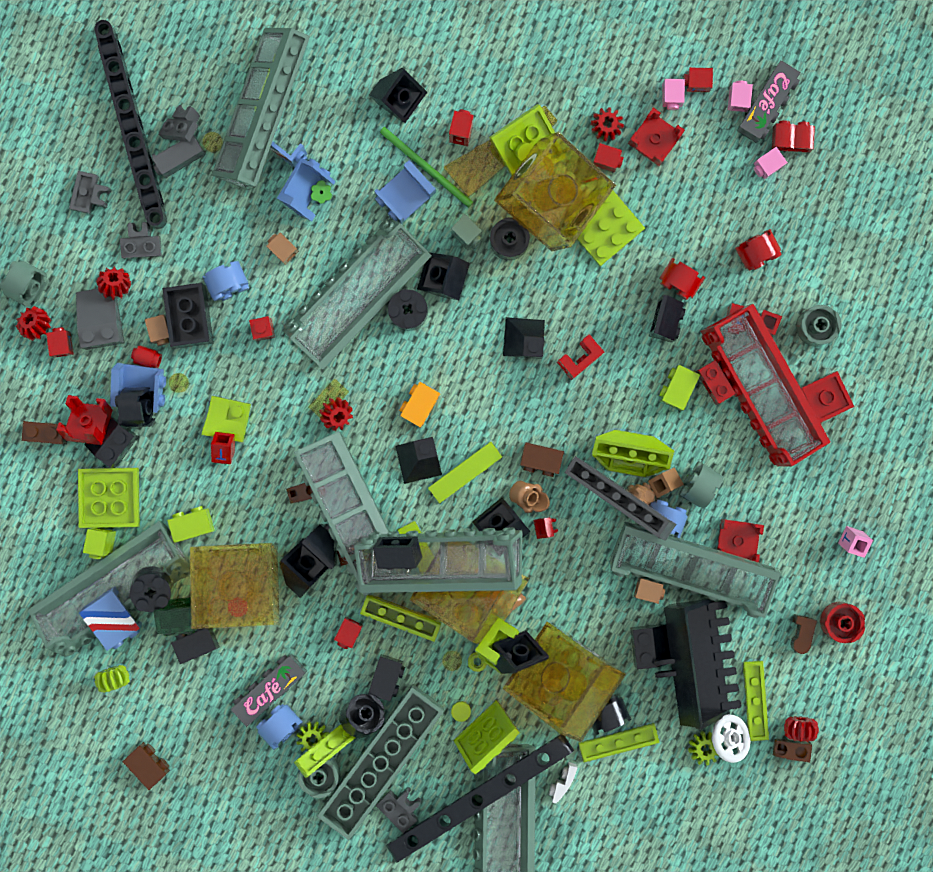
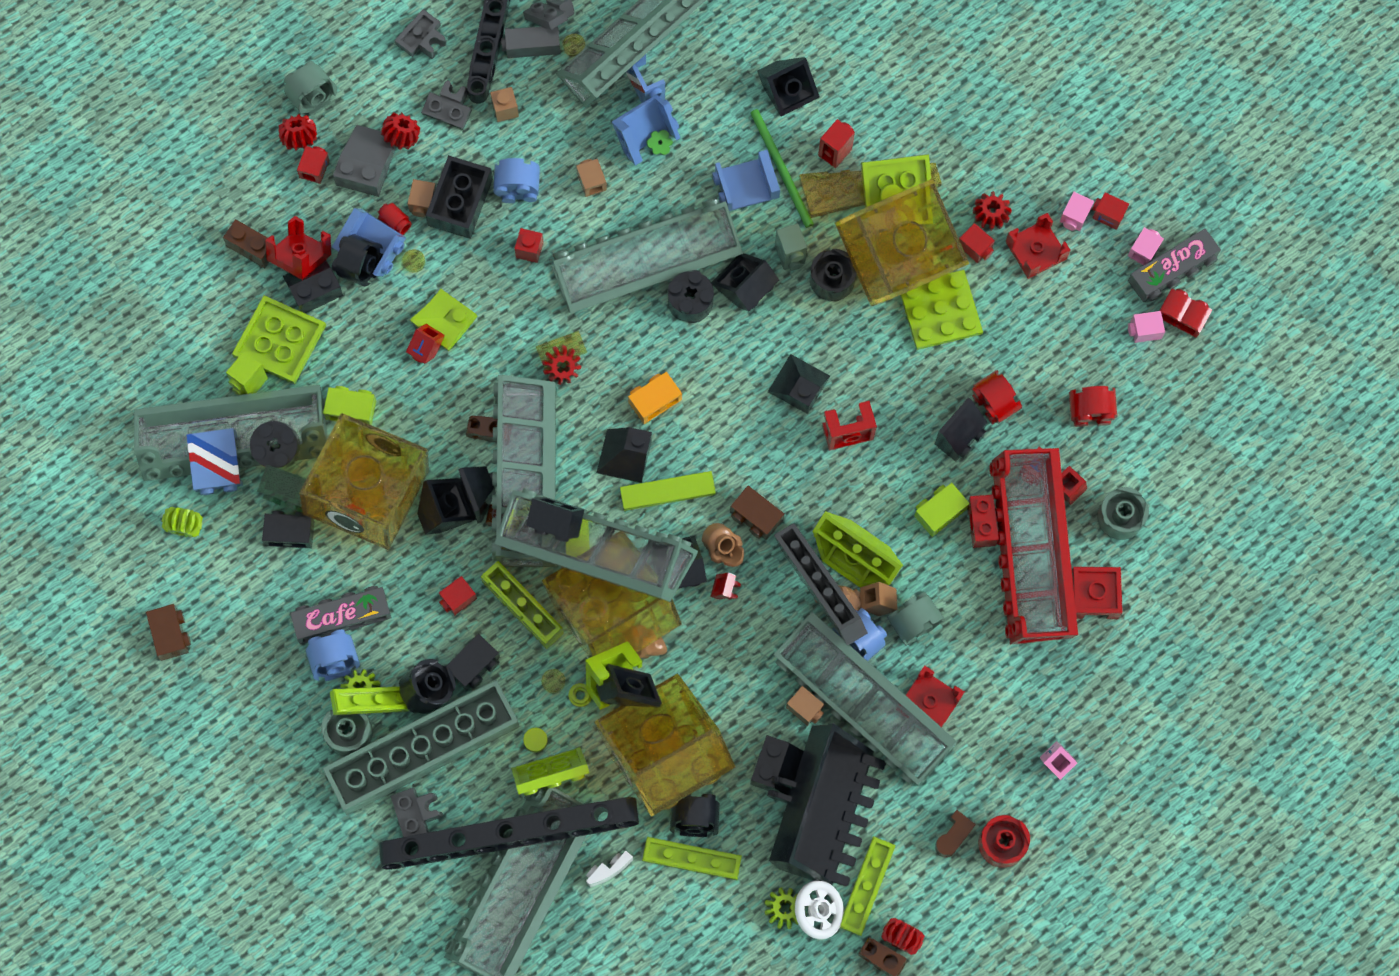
camera: 25 degrees right, 15 degrees down
(183, 220) = (504, 104): none -> medium nougat brick

